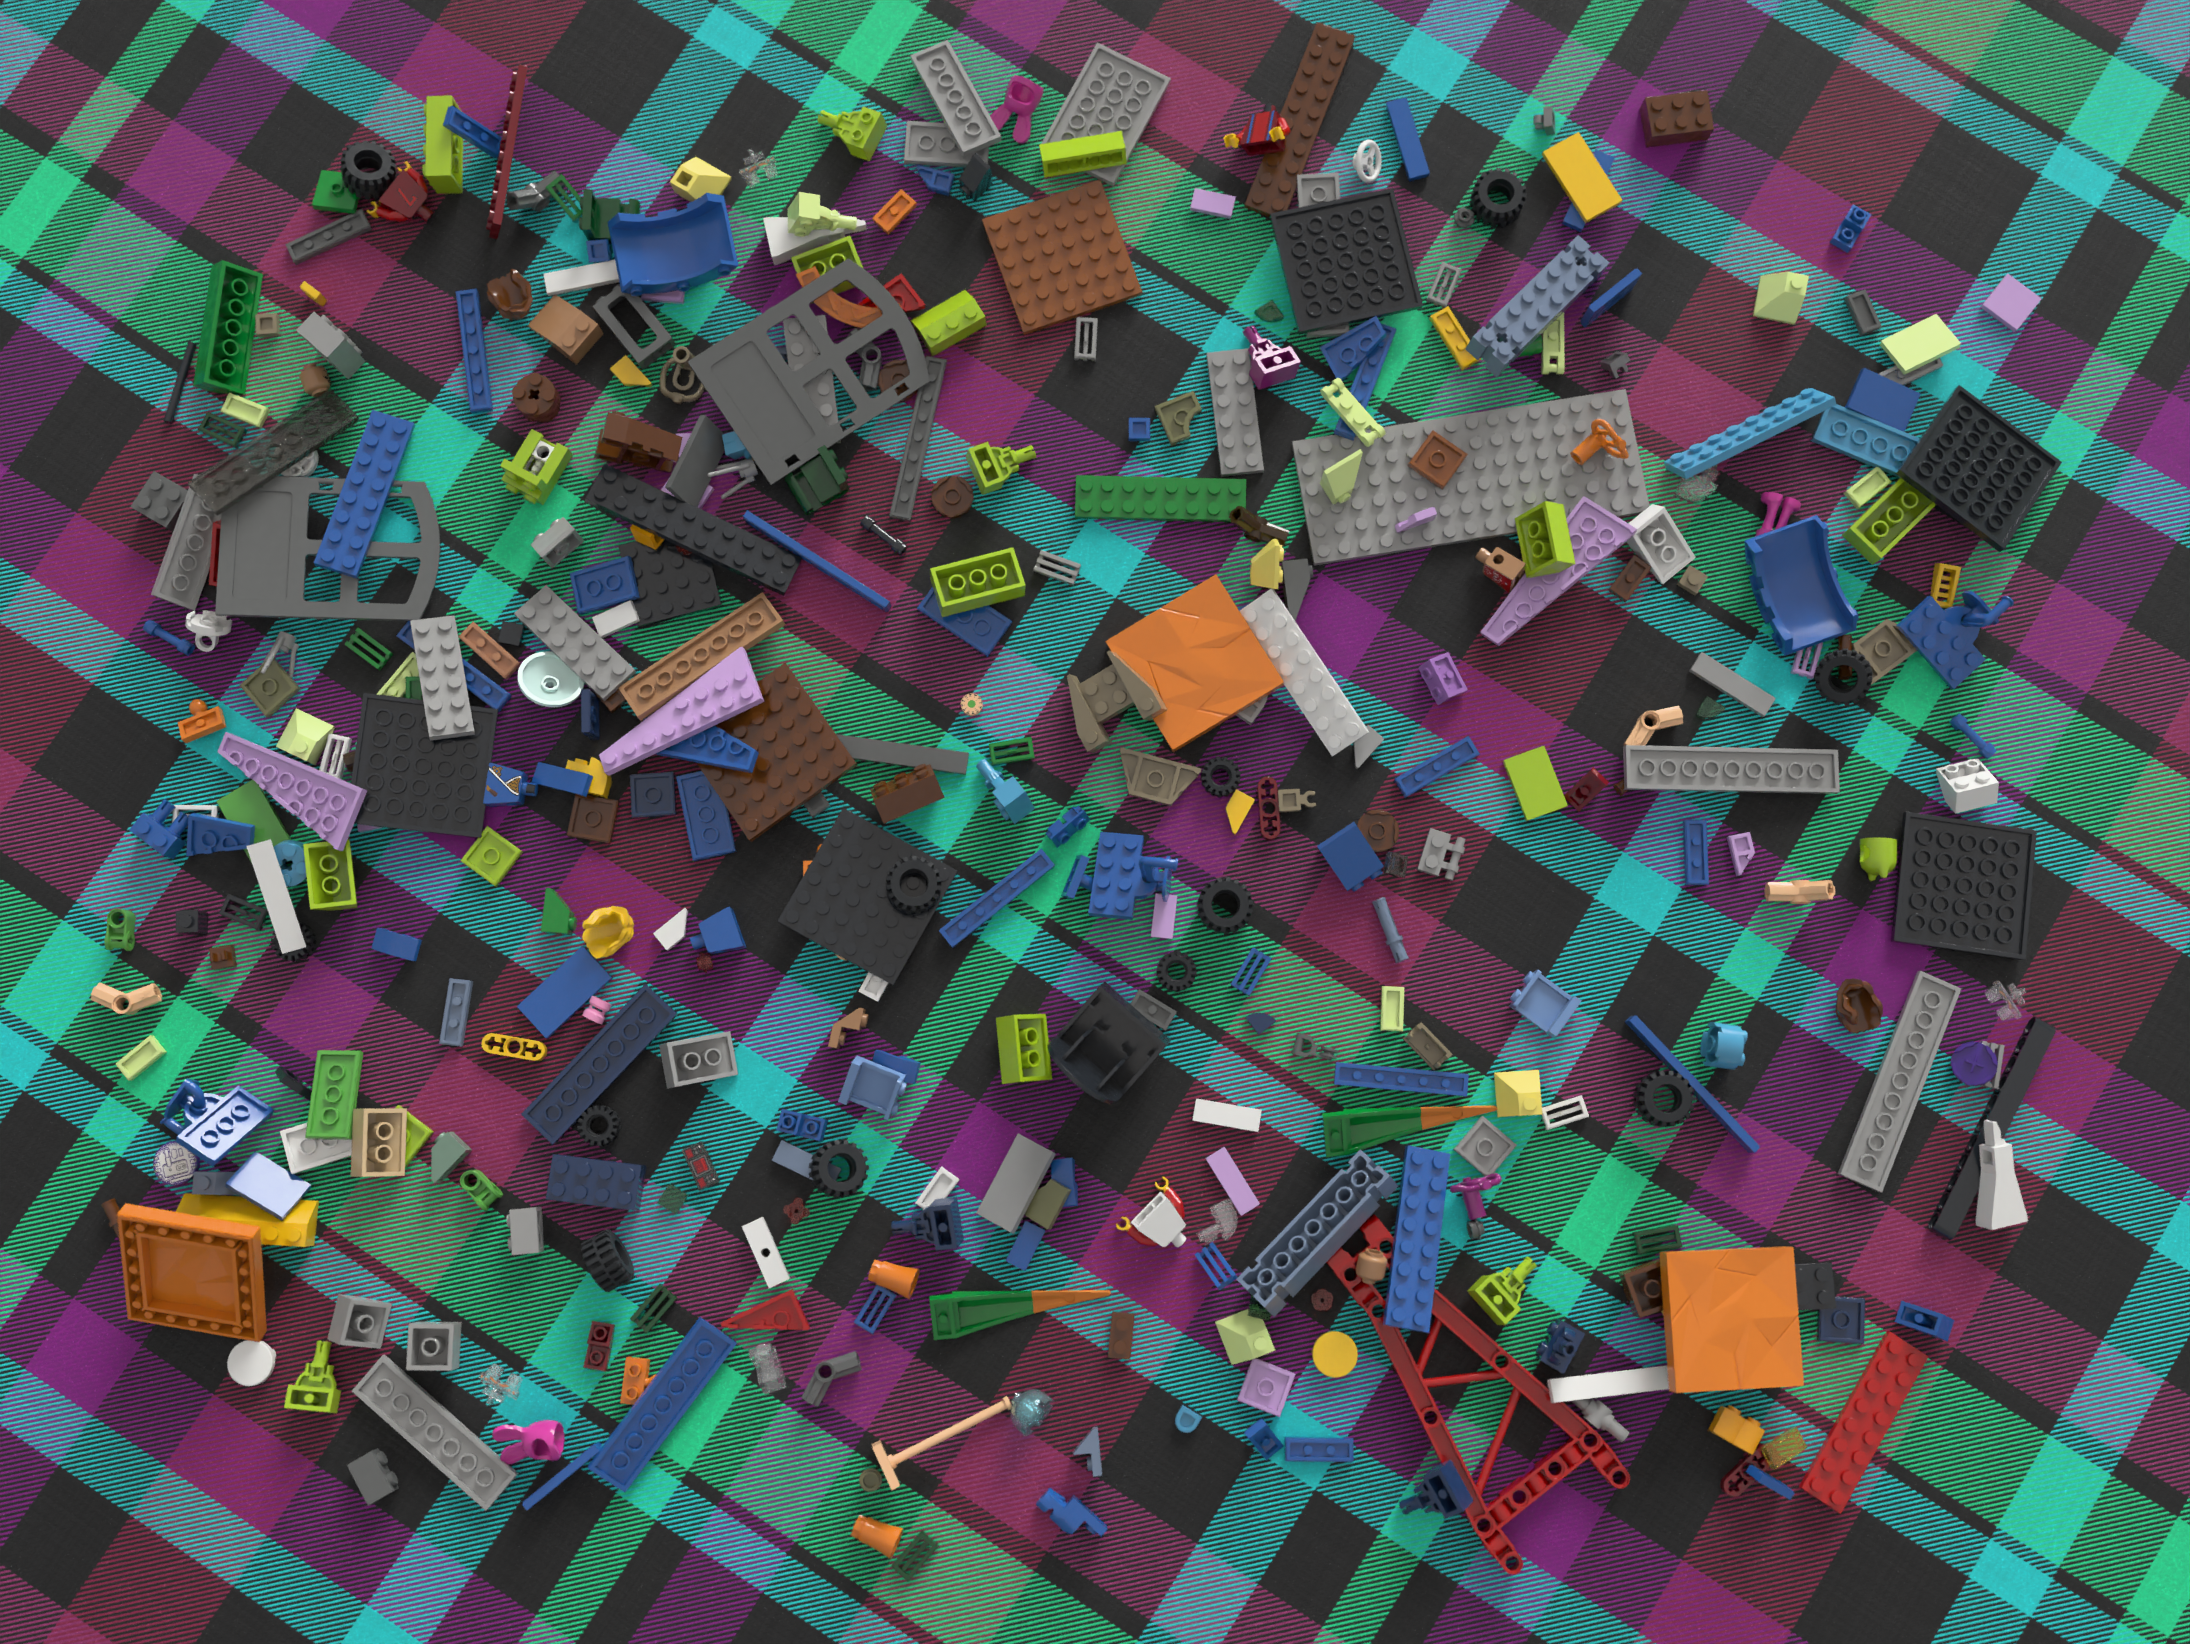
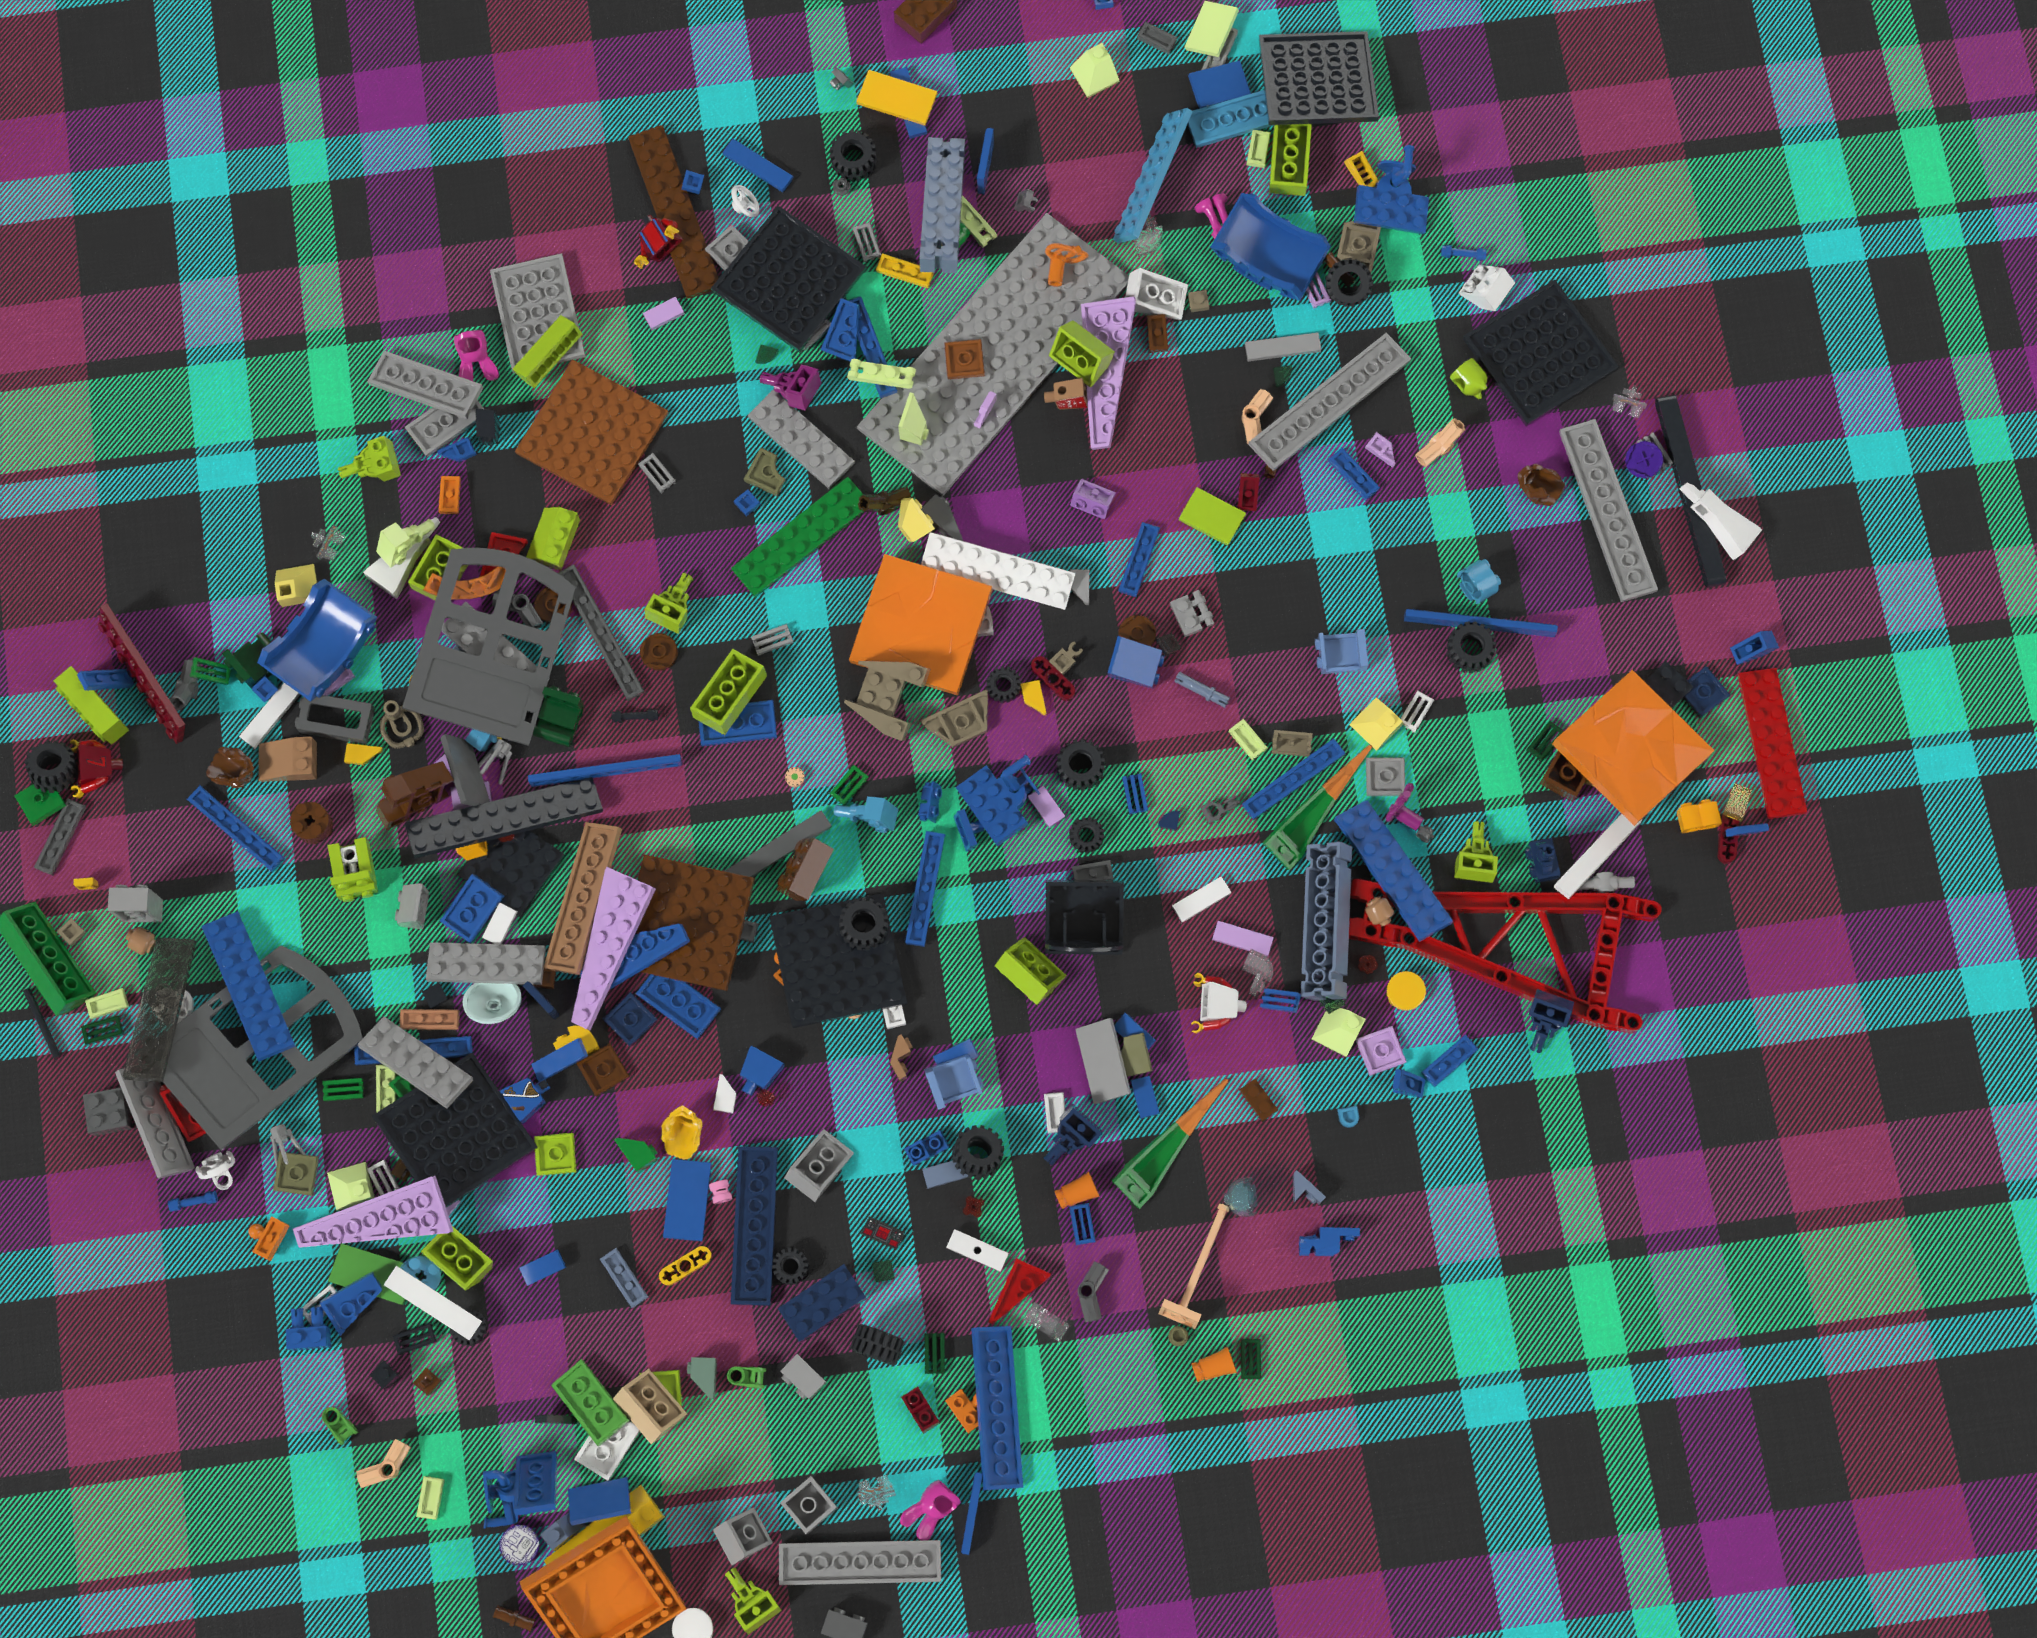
camera: 40 degrees left, 5 degrees down
(1337, 107) = (692, 182): none -> blue tile

